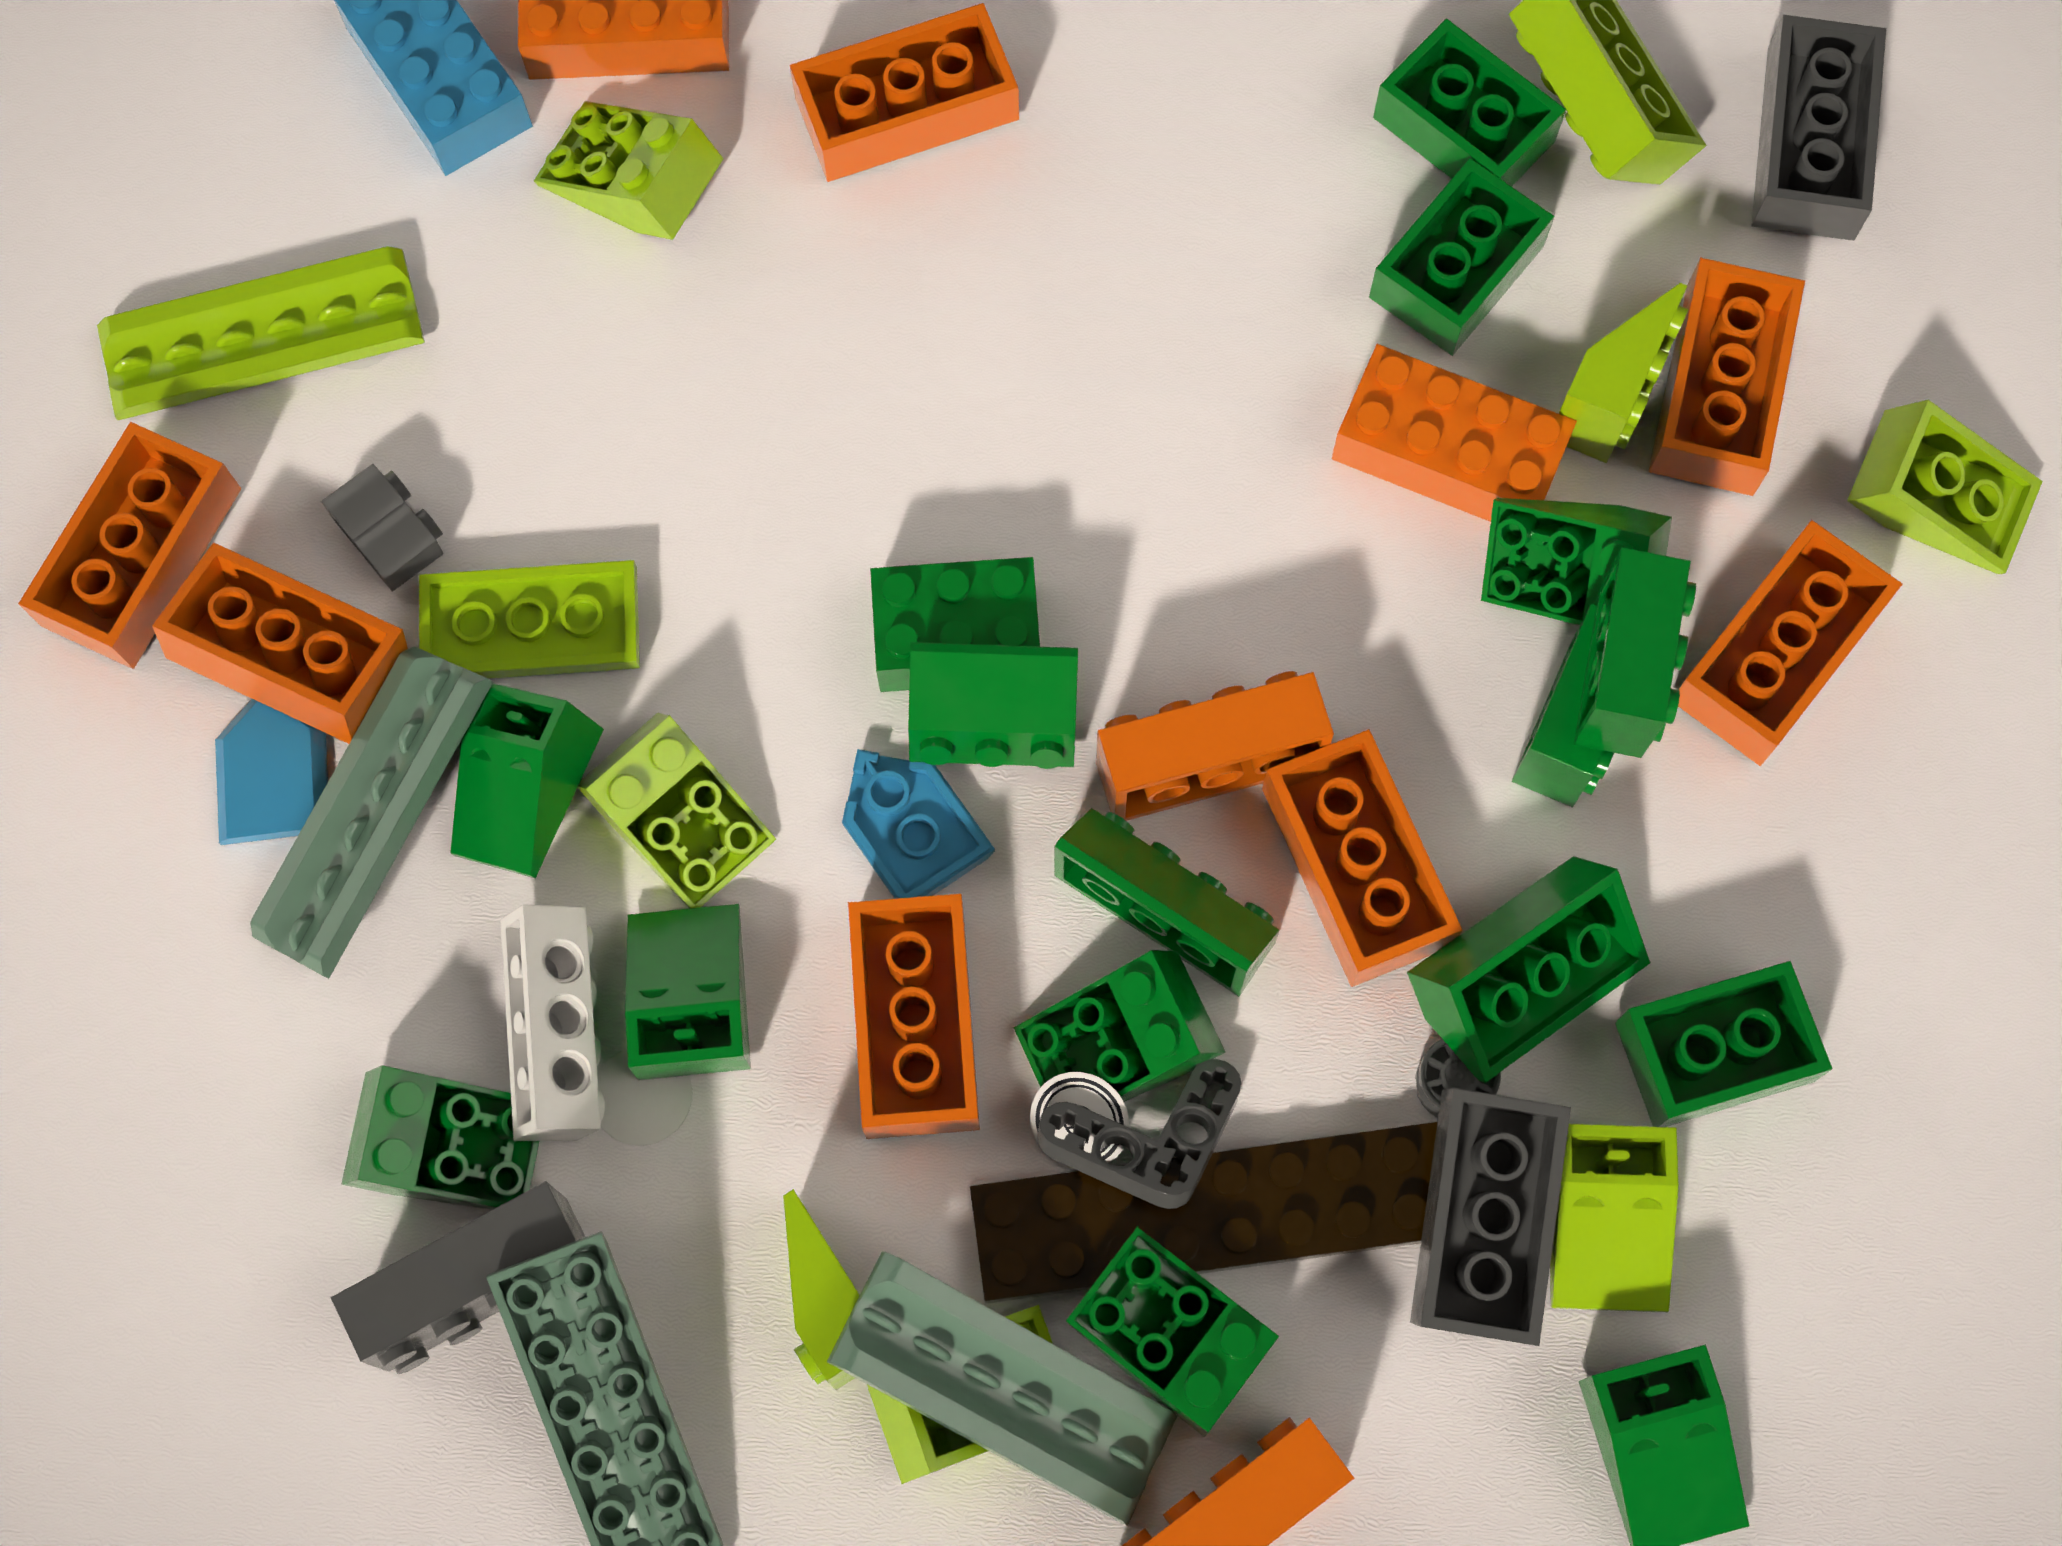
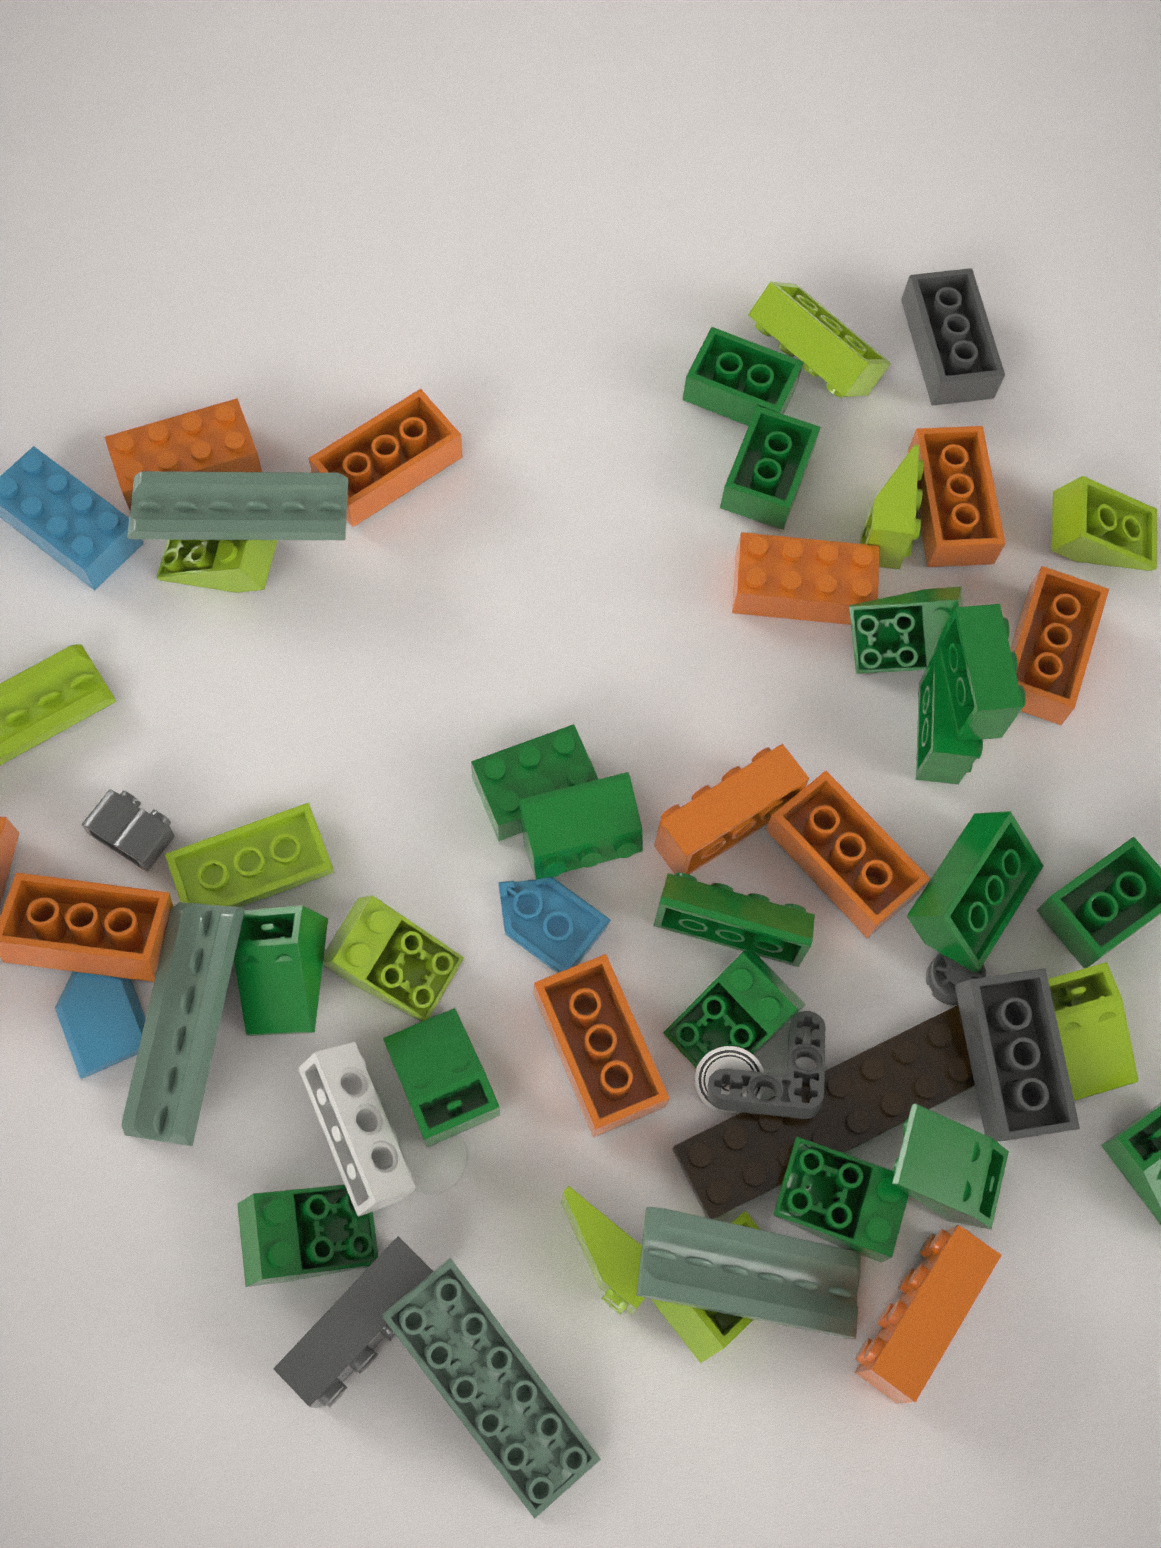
camera: 25 degrees left, 5 degrees down
(667, 111) = (238, 506): none -> sand green plate
(1334, 1339) = (950, 1168): none -> green slope

